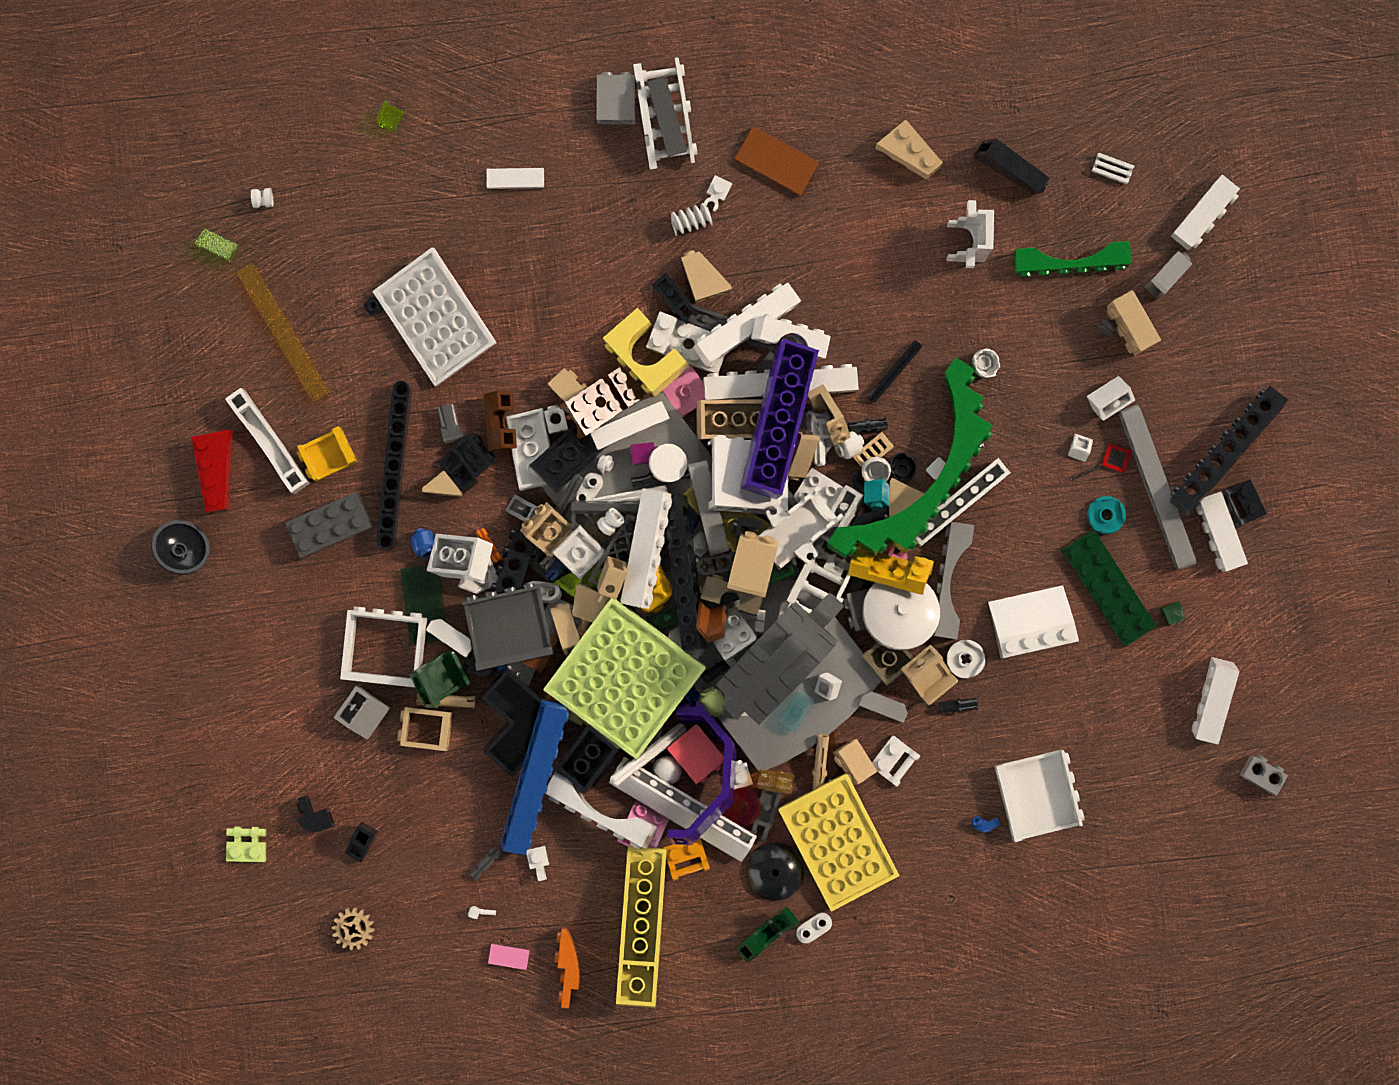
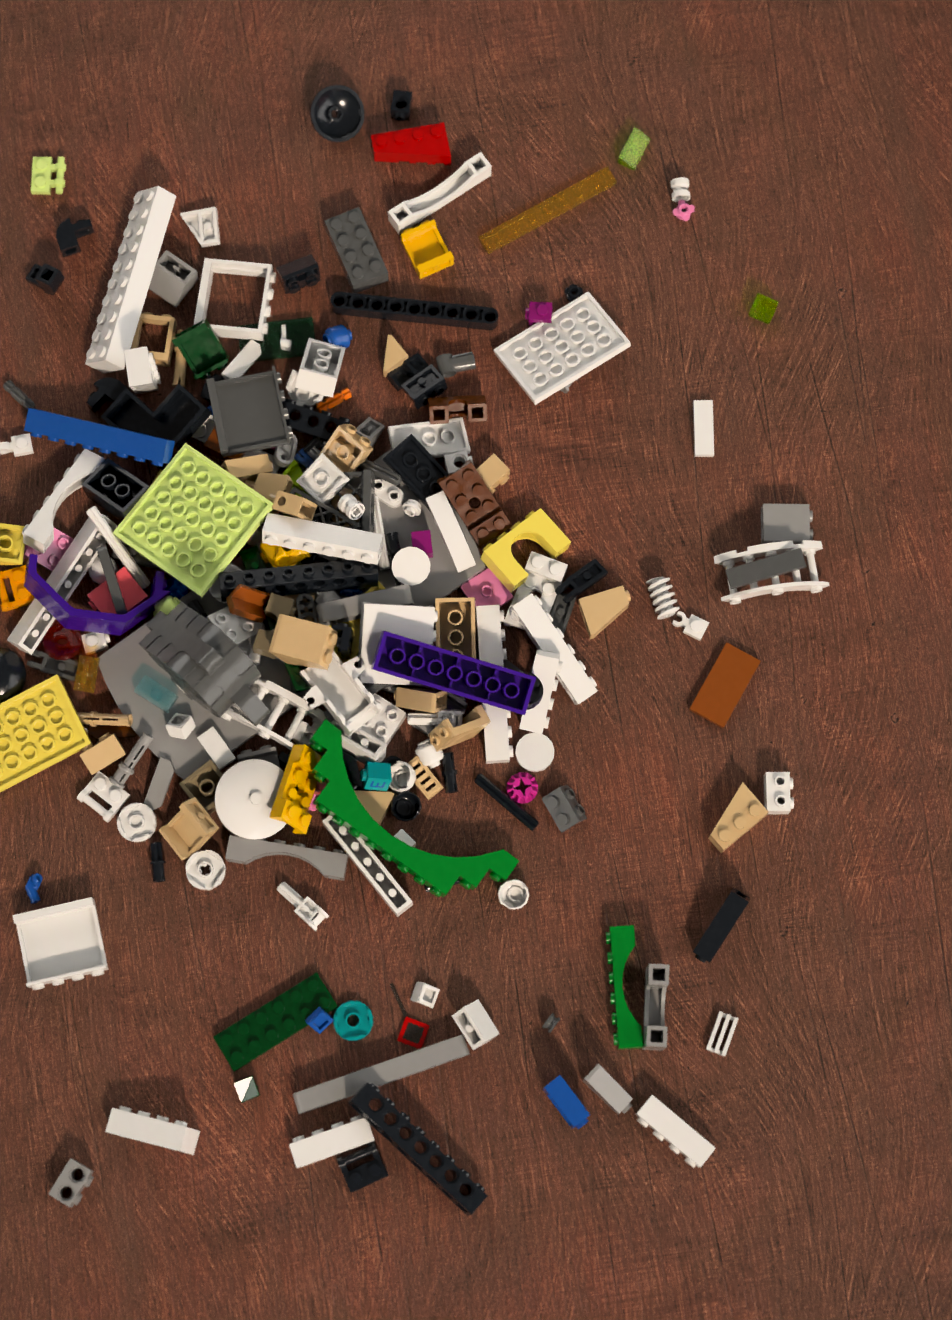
camera: 85 degrees right, 10 degrees down
(161, 482) = (401, 98): none -> black brick
(290, 193) = (685, 216): none -> bright pink plate
(302, 681) = (203, 225): none -> white wing
(355, 583) = (298, 274): none -> black slope
(364, 753) = (130, 279): none -> white brick
(396, 340) = (539, 312): none -> magenta bracket
(430, 595) = (285, 344): none -> white hand
(470, 735) = (141, 370): none -> white wedge
(479, 772) = (107, 389): none -> black brick
(684, 758) = (111, 580): none -> dark grey beam
(845, 344) = (534, 752): none -> white tile
(849, 650) = (216, 748): none -> white tile
(867, 738) = (127, 767): none -> light grey pin
(876, 364) = (517, 795): none -> dark pink gear
(883, 111) = (777, 792): none -> white brick
(900, 315) = (564, 808): none -> dark grey bracket
(919, 727) = (137, 822): none -> white tile
(982, 229) = (645, 888): white piece -> none
(1001, 562) = (305, 908): none -> white connector
(1032, 622) = (241, 940): white slope -> none
(1070, 228) = (654, 1007): none -> light grey arch
(1108, 546) = (319, 1020): none -> blue tile
(1133, 323) = (554, 1047): tan brick -> none
(1183, 312) = (566, 1102): none -> blue window

